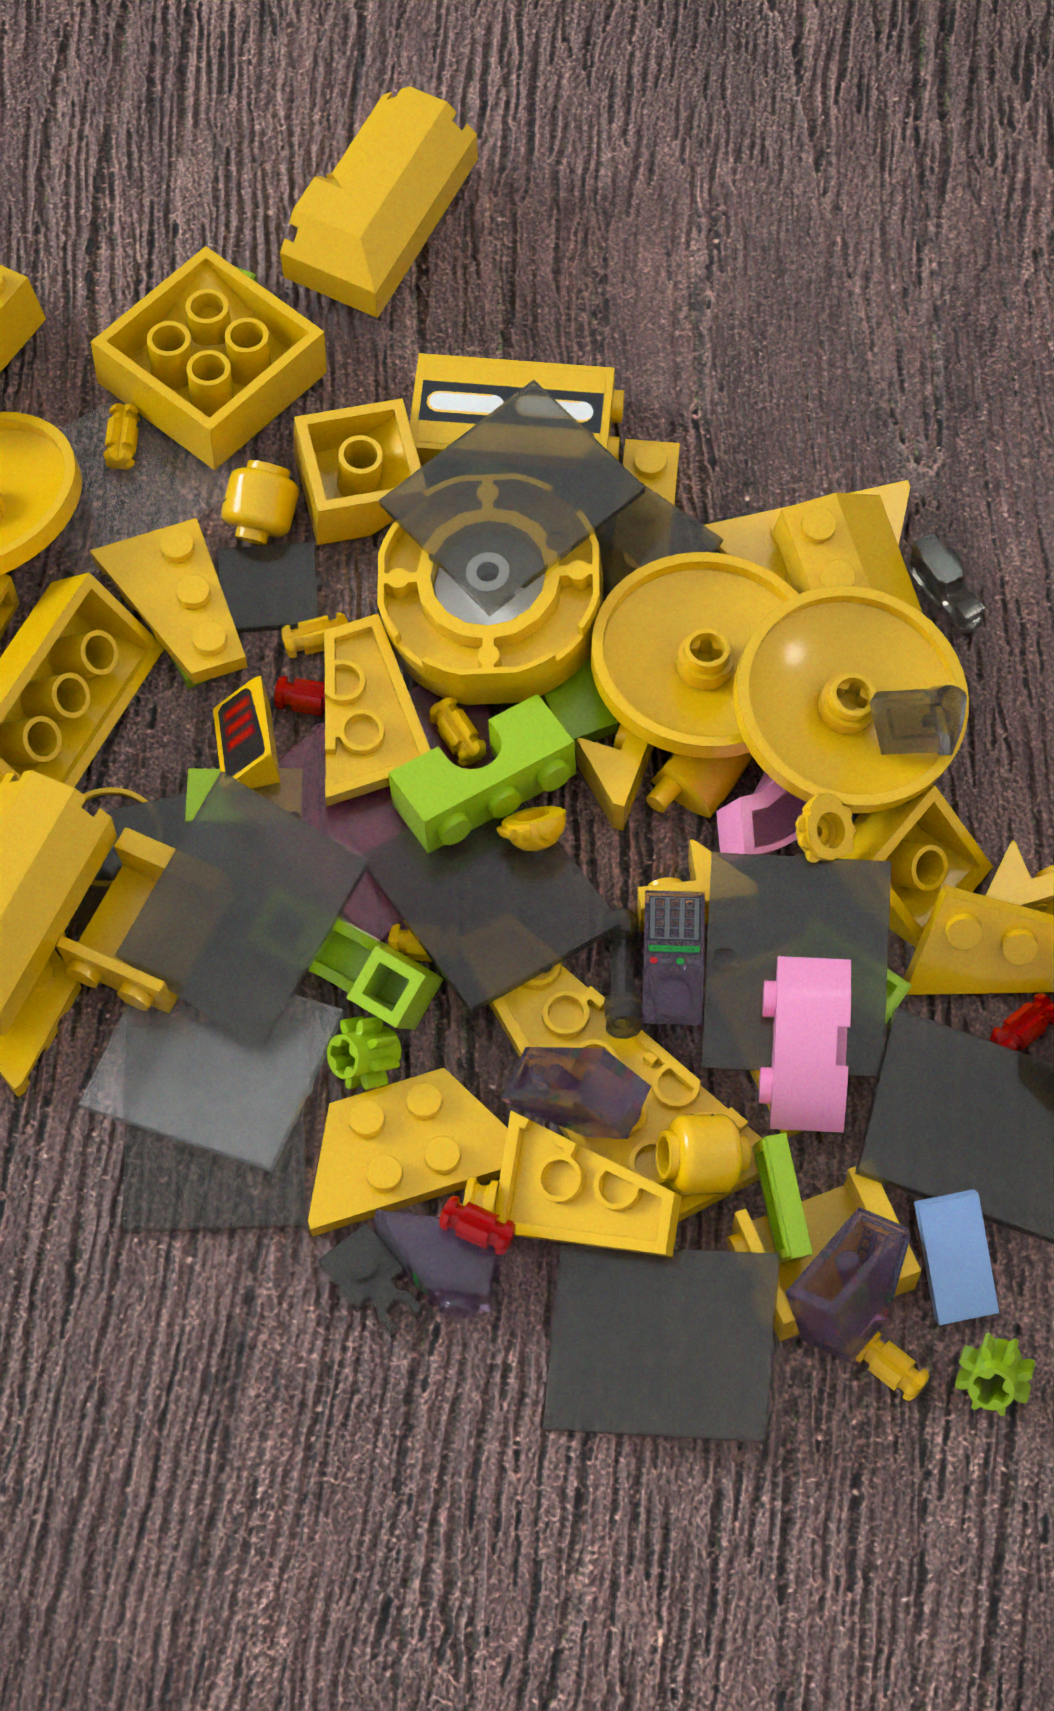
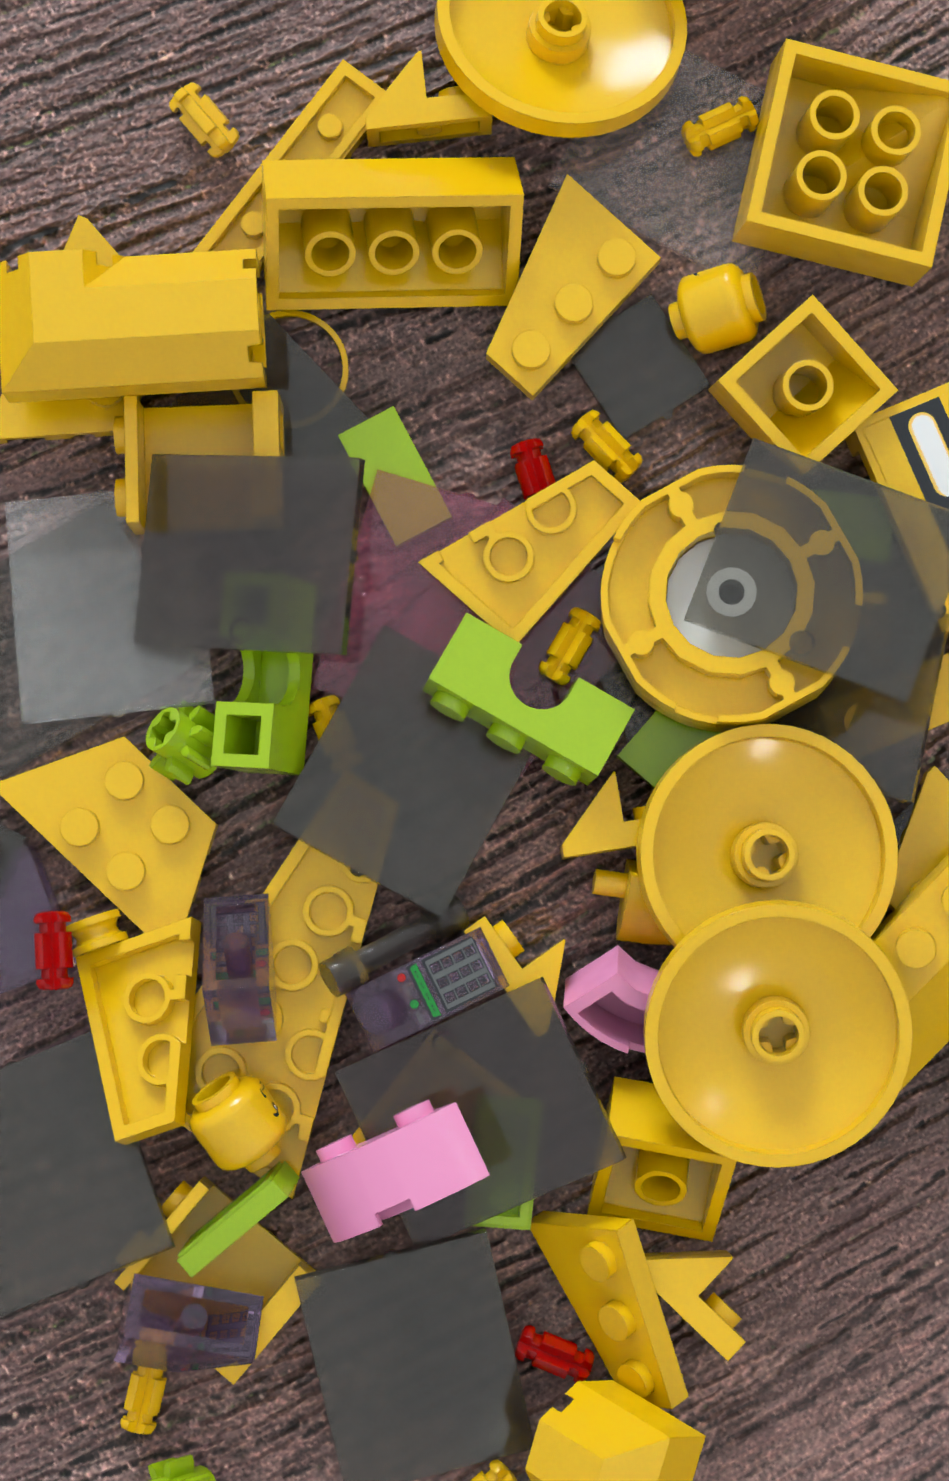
camera: 55 degrees right, 20 degrees up
(247, 736) = (449, 446): slope -> none
(534, 827) = (496, 780): yellow animal -> none
(825, 828) = (616, 1080): yellow animal -> none
(919, 719) = (782, 1118): clear smoke tile -> none
(956, 1257) = (273, 1407): light blue tile -> none

